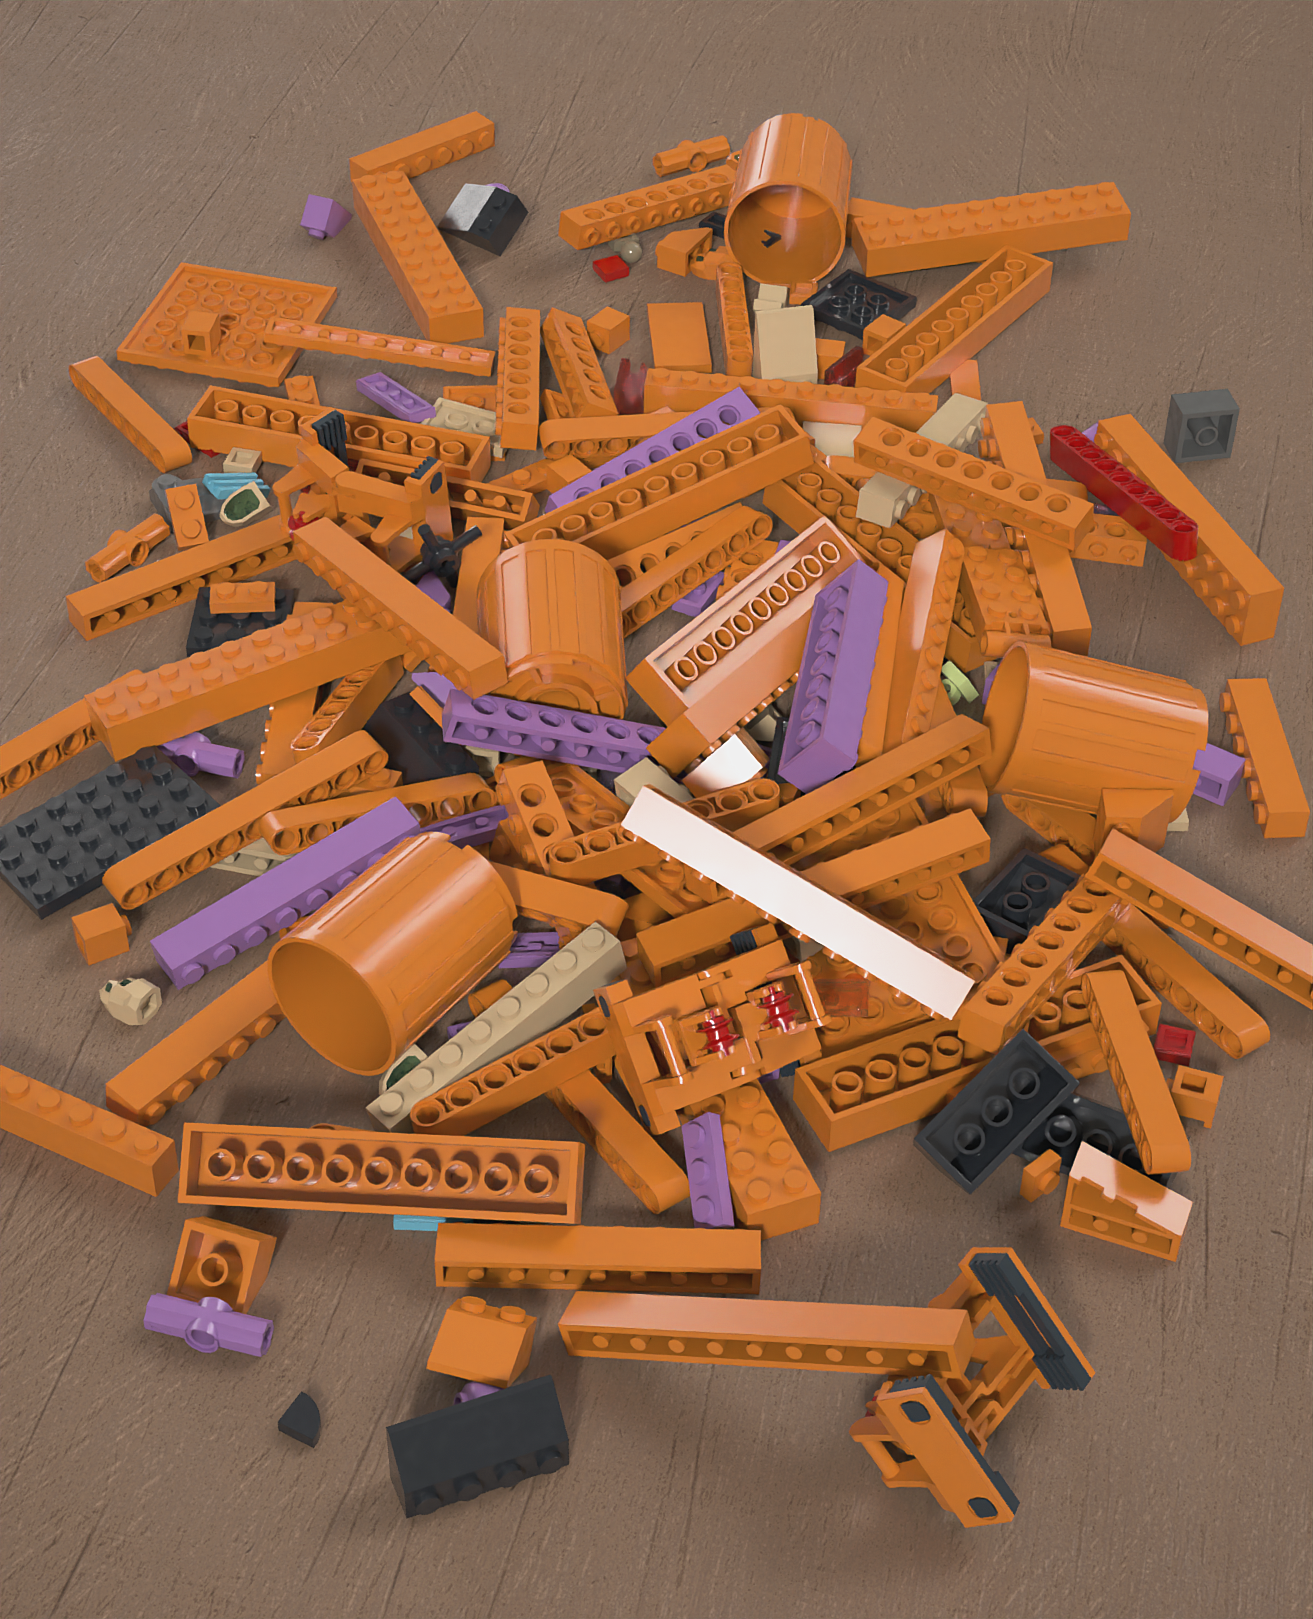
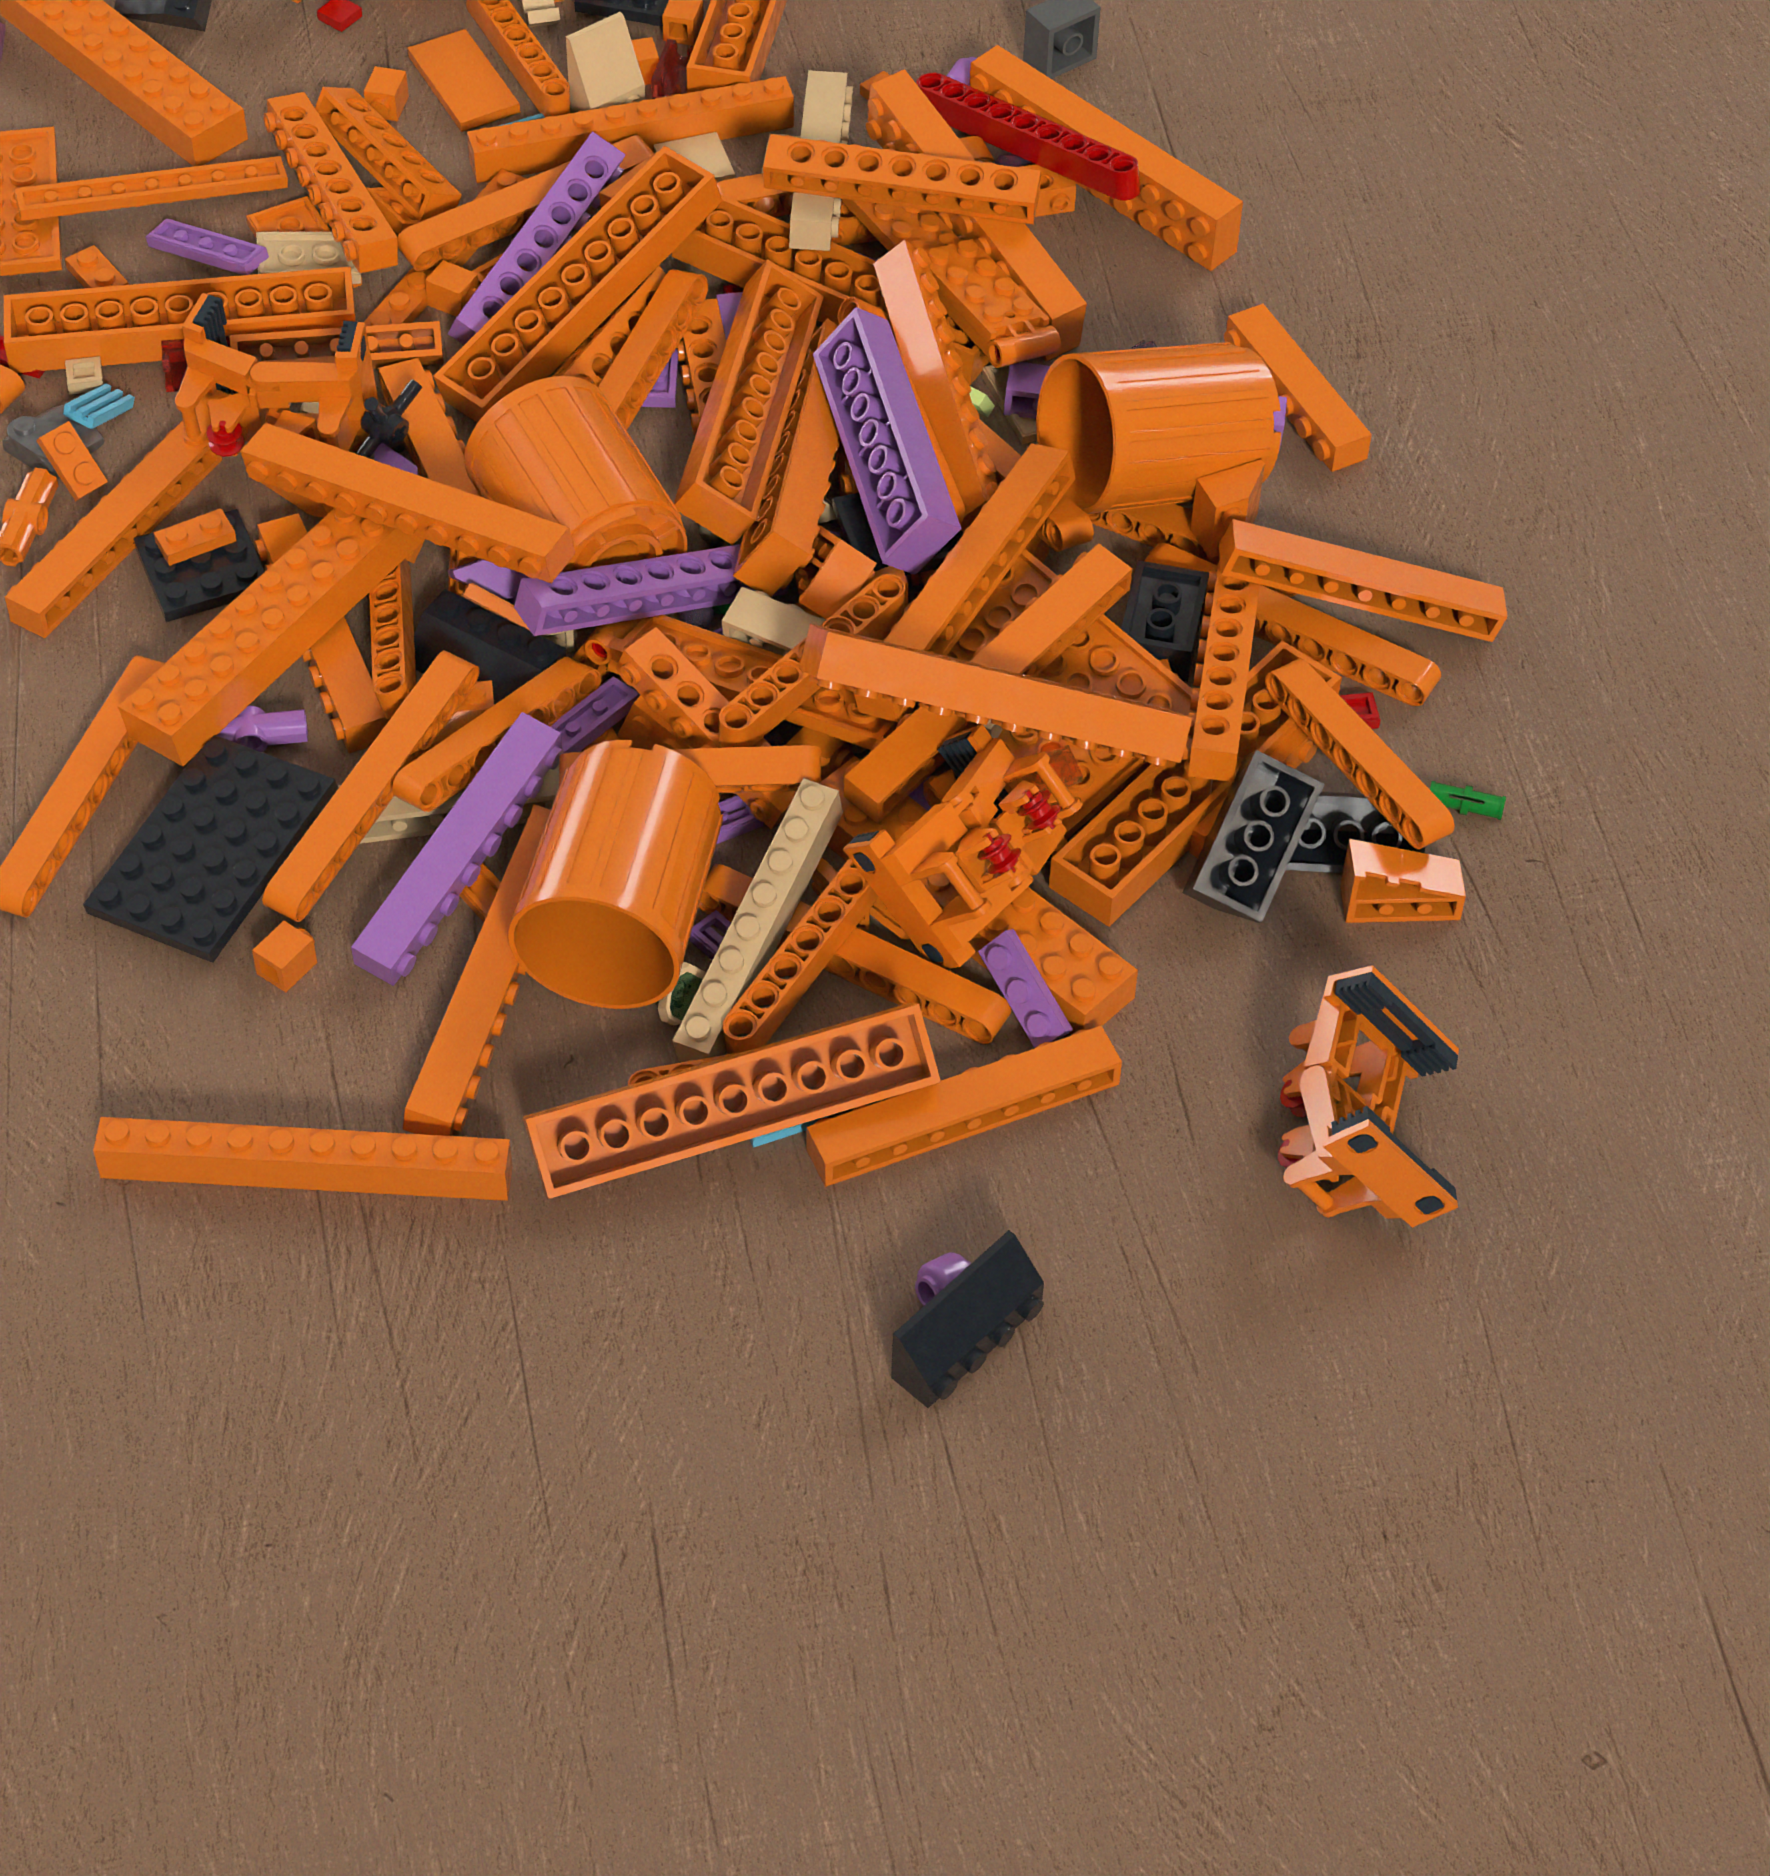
camera: 25 degrees left, 10 degrees up
(131, 1000) = (357, 1013): tan rock -> none
(208, 1324) = (644, 1303): medium lavender piece -> none
(221, 1263) = (621, 1245): orange slope -> none
(244, 506) = (123, 428): rock -> none
(302, 1420) = (784, 1357): black tile -> none
(483, 1342) = (915, 1223): orange slope -> none
(629, 389) = (453, 160): clear red hinge -> none
(769, 1333) = (1176, 1121): orange brick -> none
(966, 380) = (794, 53): orange tile -> none
(1041, 1176) = (1312, 882): orange plate -> none
(1195, 1093) = (1412, 749): orange brick -> none
(1215, 1142) = (1492, 804): none -> green pin

